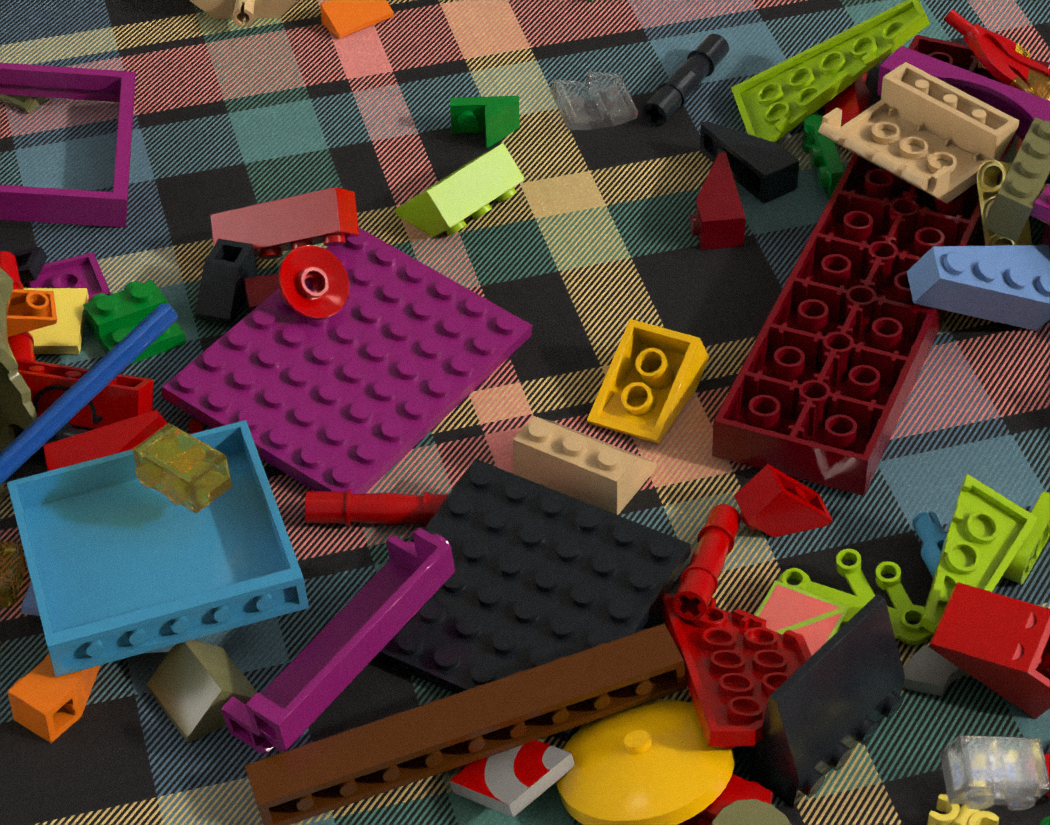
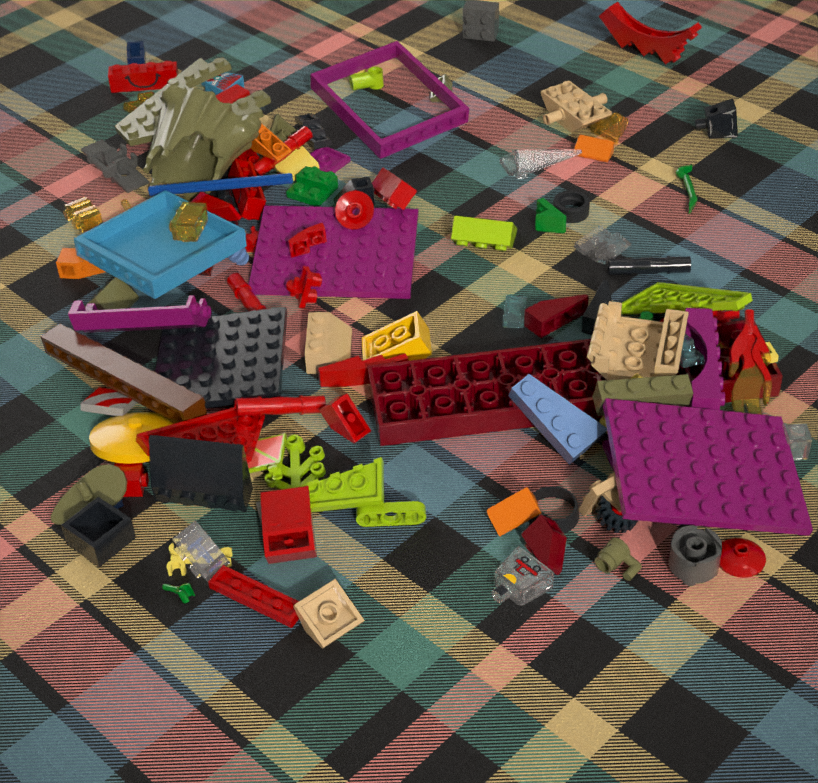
camera: 60 degrees right, 0 degrees up
(329, 380) = (302, 241): none -> red slope
(335, 78) = (526, 162): none -> clear wedge
(428, 424) = (301, 287): none -> red hips
(477, 74) = (574, 198): none -> black tyre
(668, 242) = (514, 311): none -> clear light blue tile
(684, 446) = (352, 370): none -> red slope

